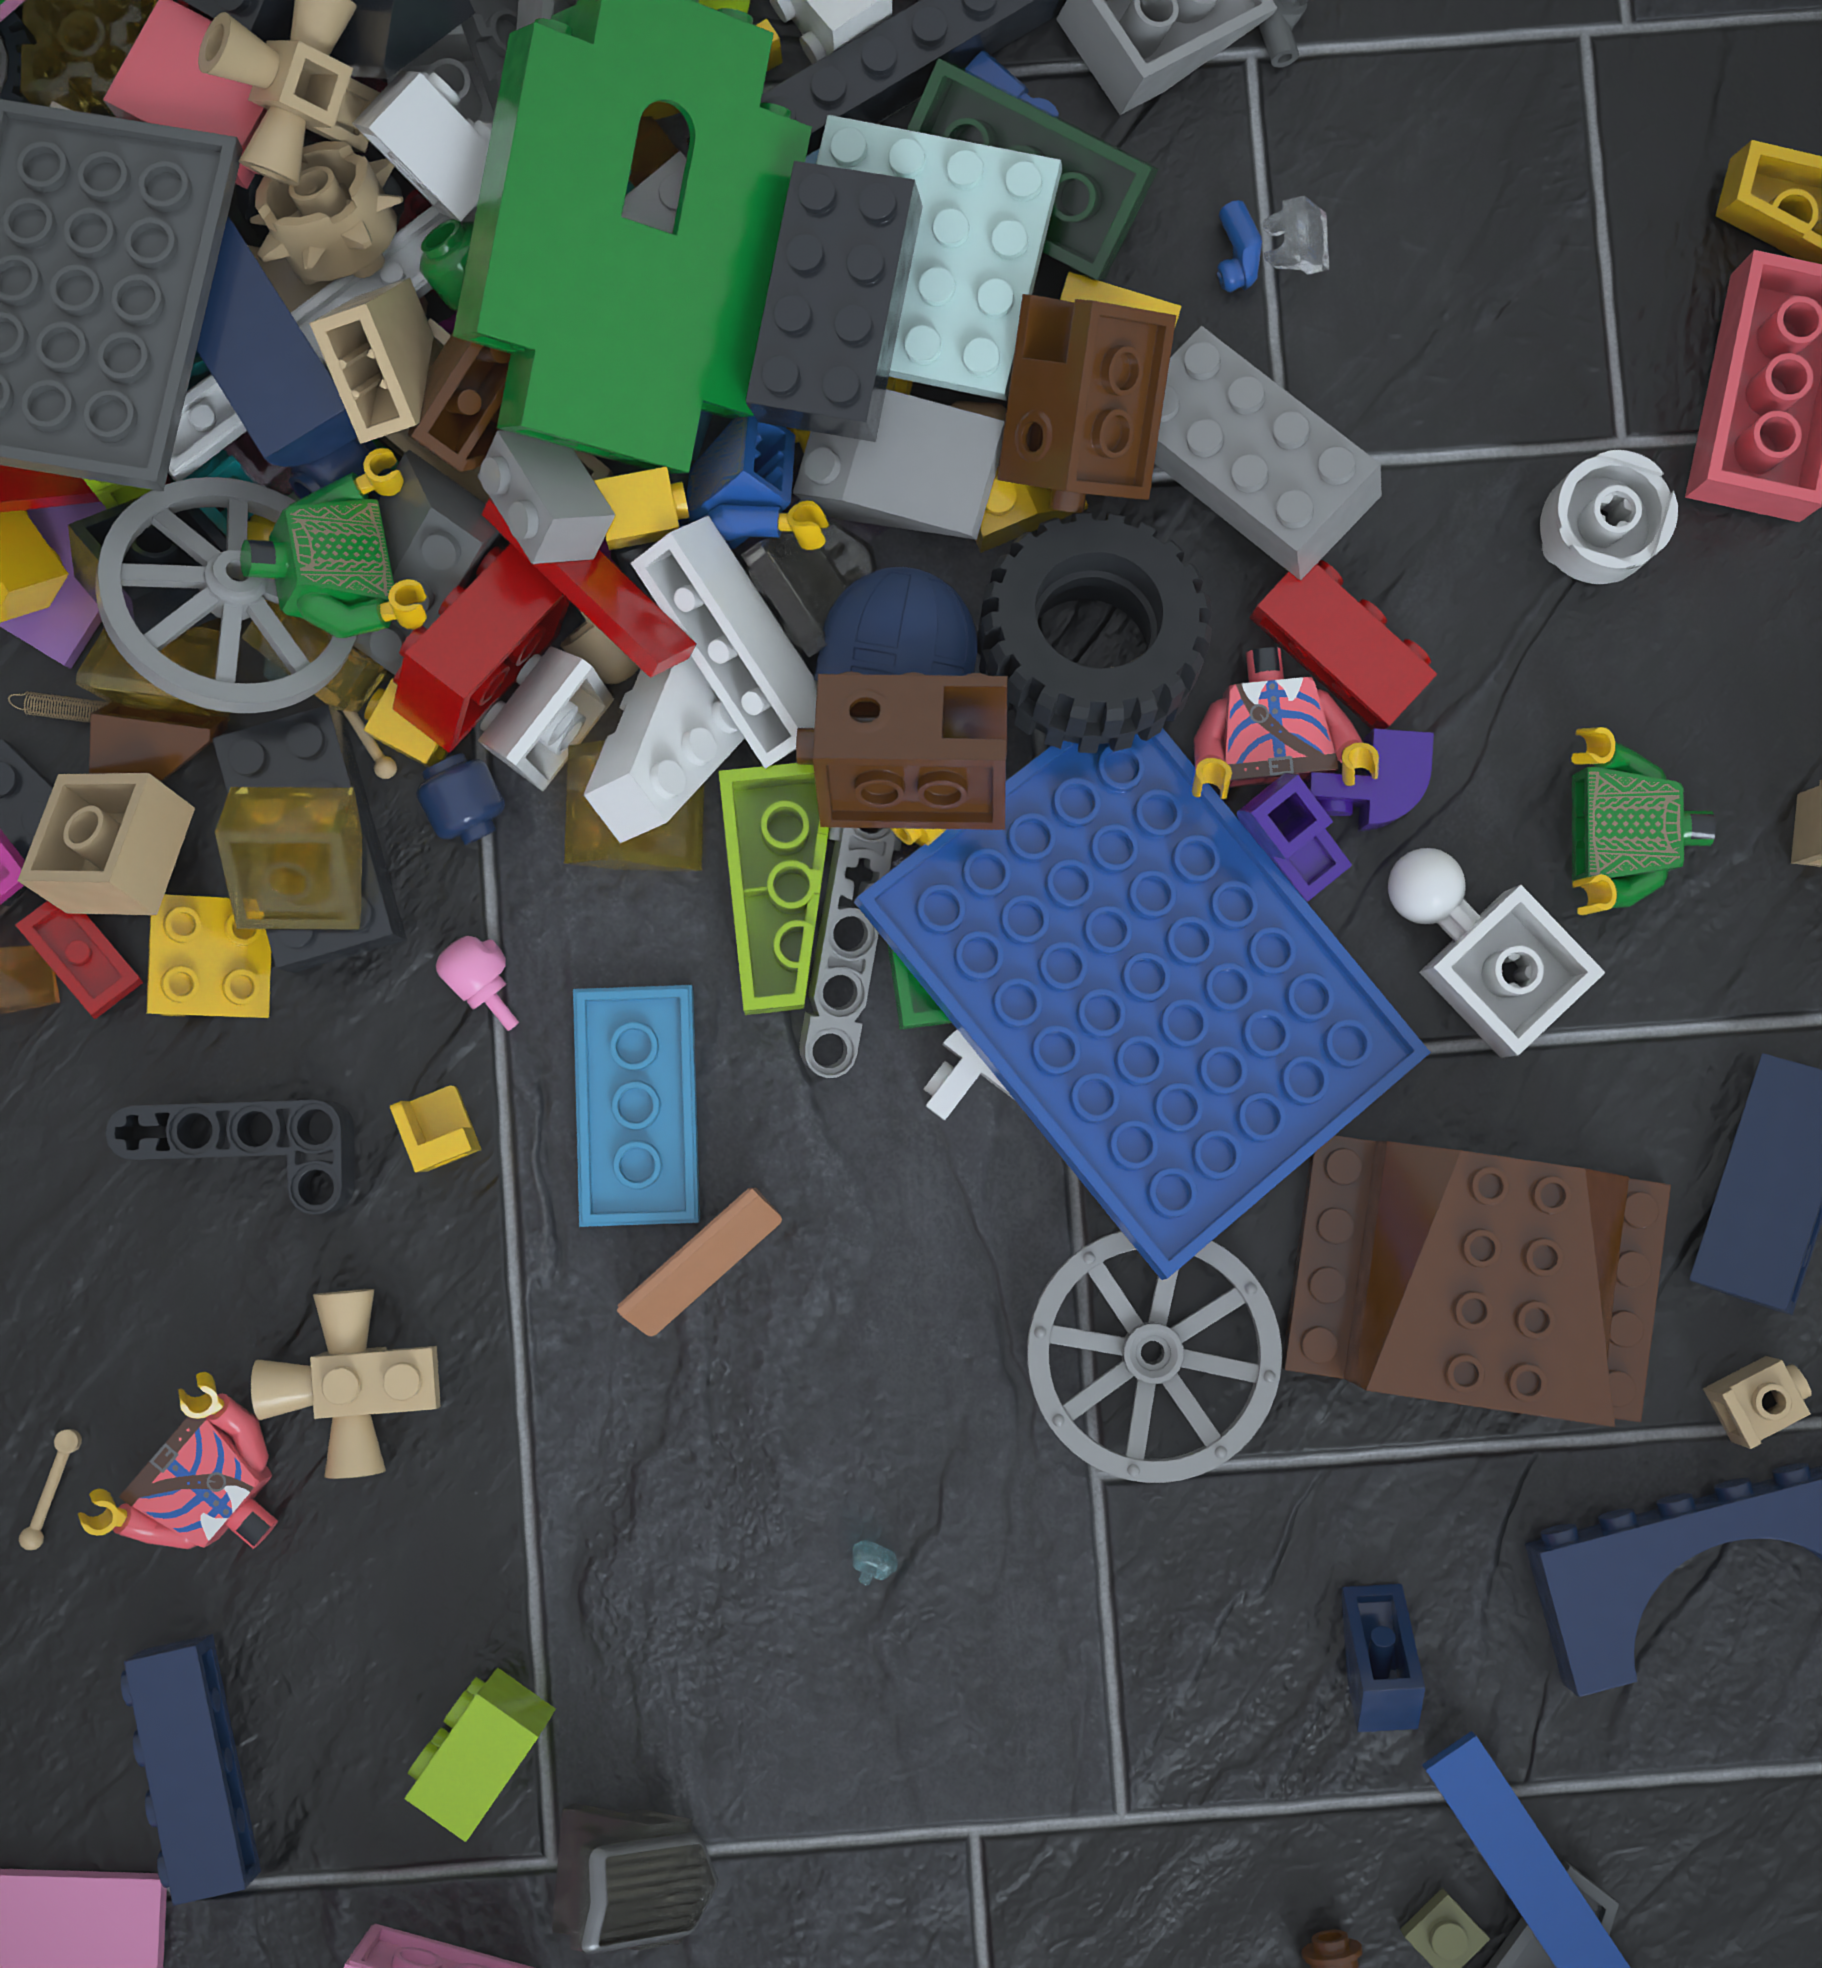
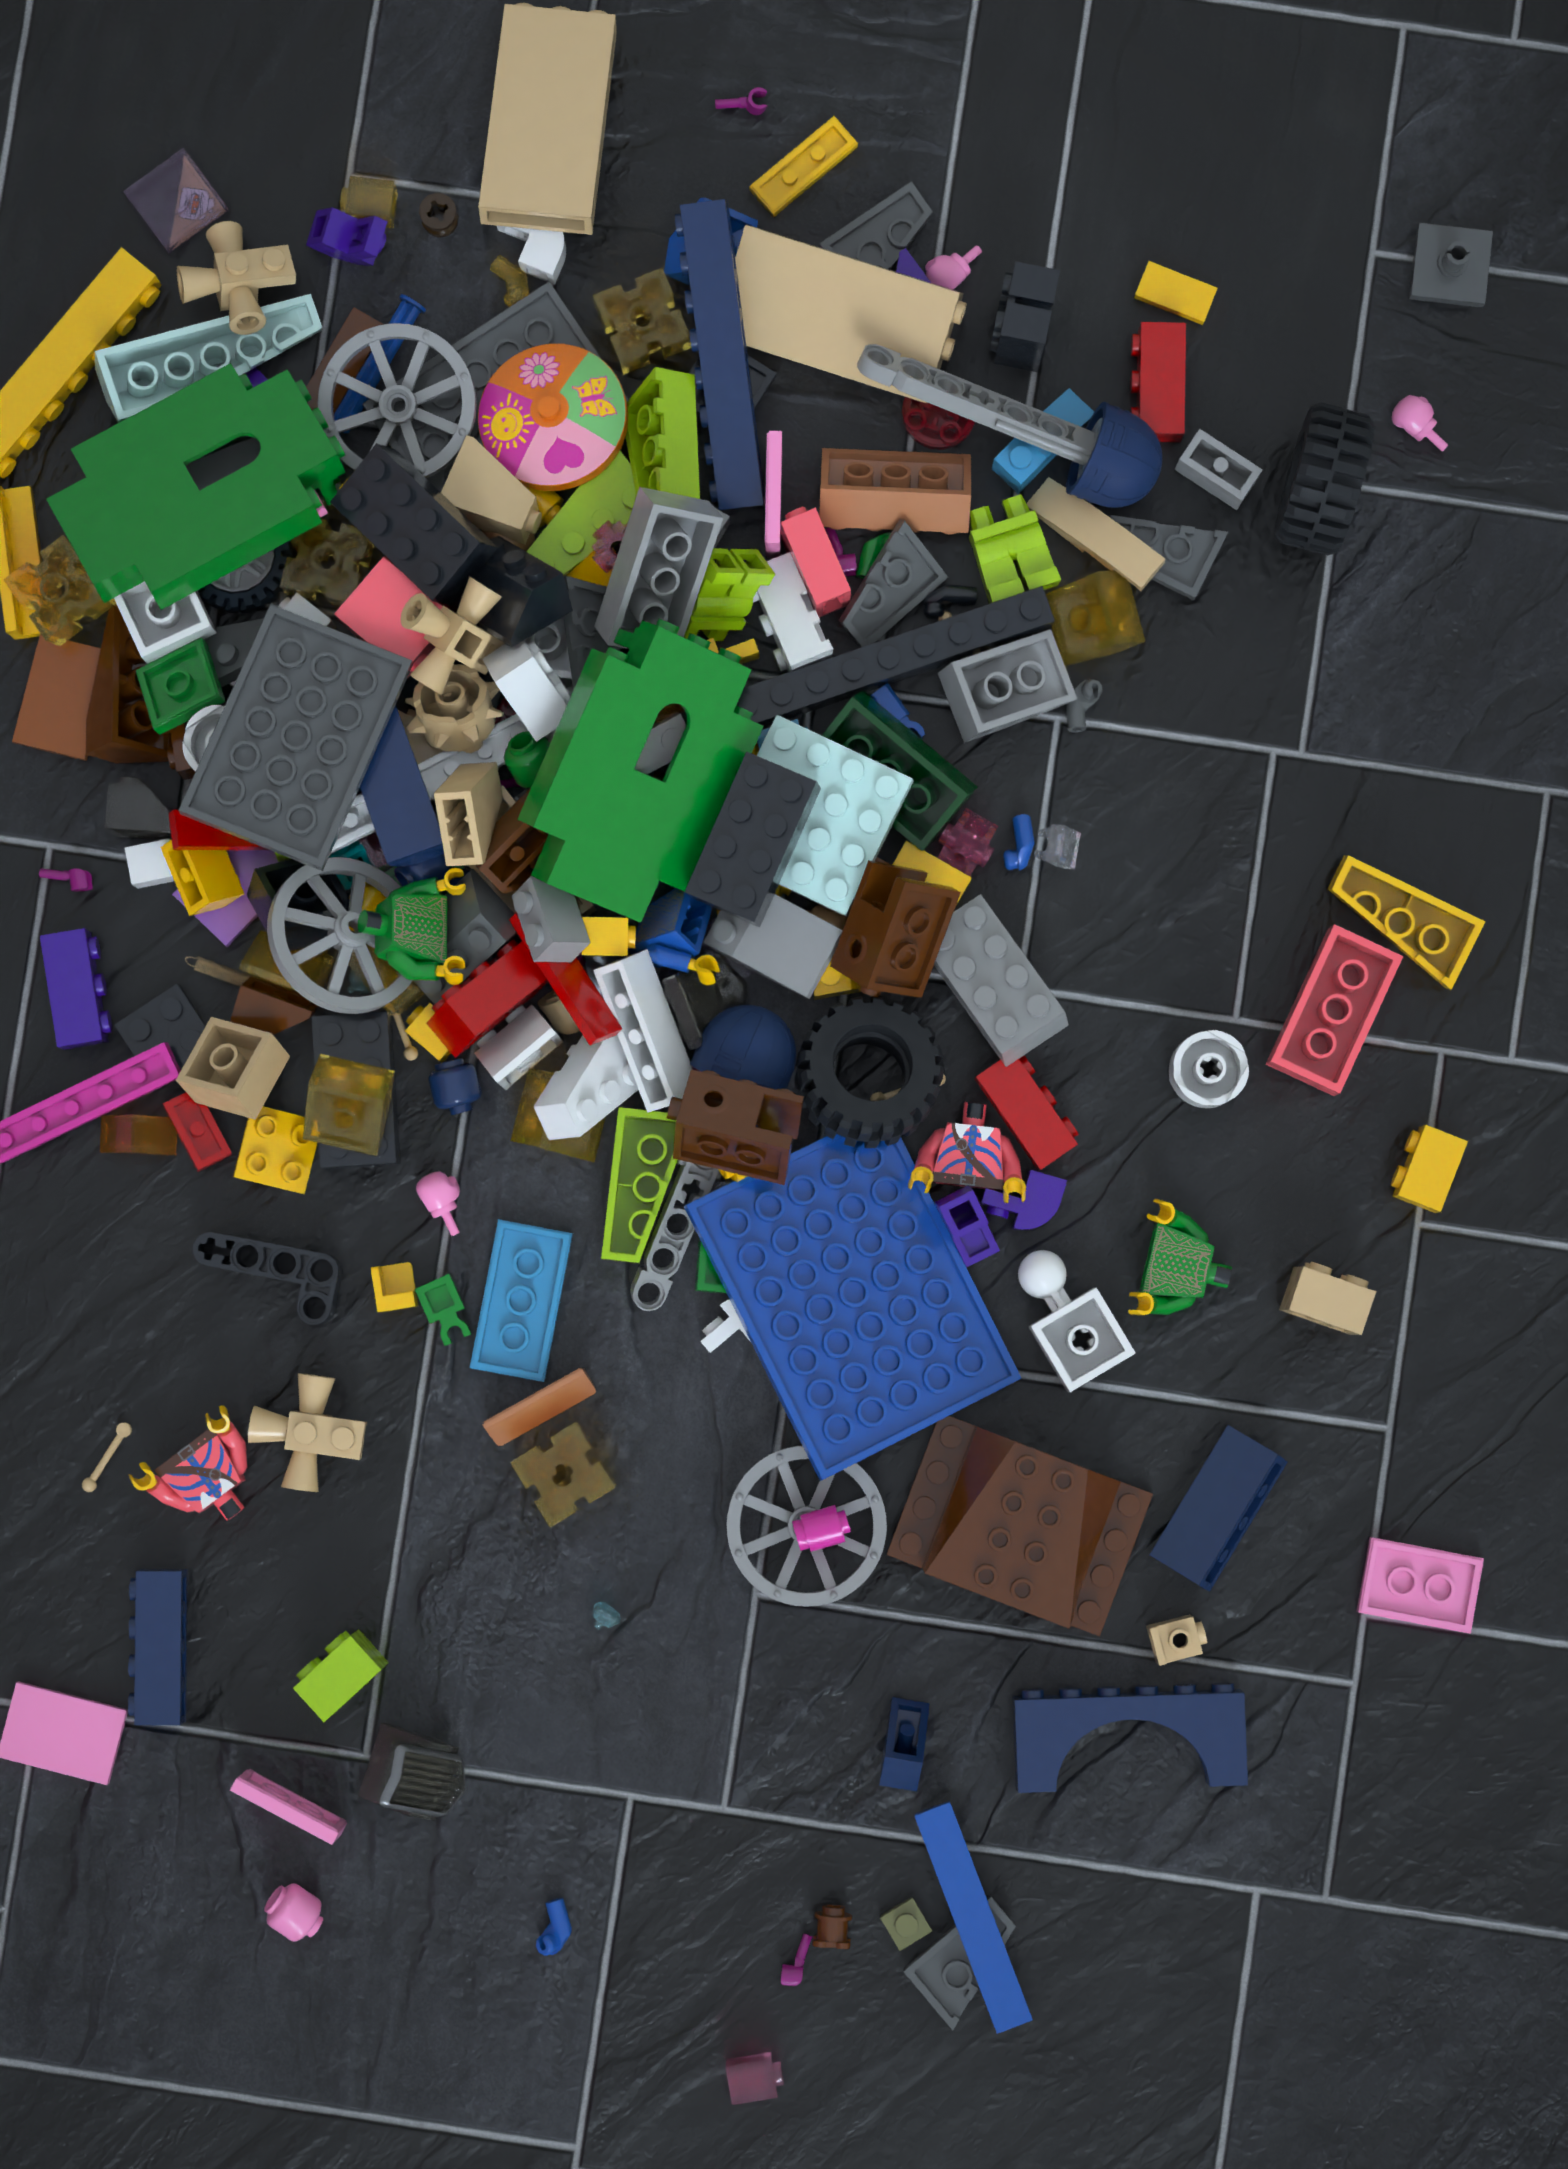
camera: 15 degrees right, 0 degrees up
(515, 1136) = (441, 1303): none -> green plate
(760, 1397) = (541, 1467): none -> clear yellow brick
(1162, 255) = (967, 842): none -> clear pink brick
(1180, 1354) = (821, 1528): none -> dark pink brick

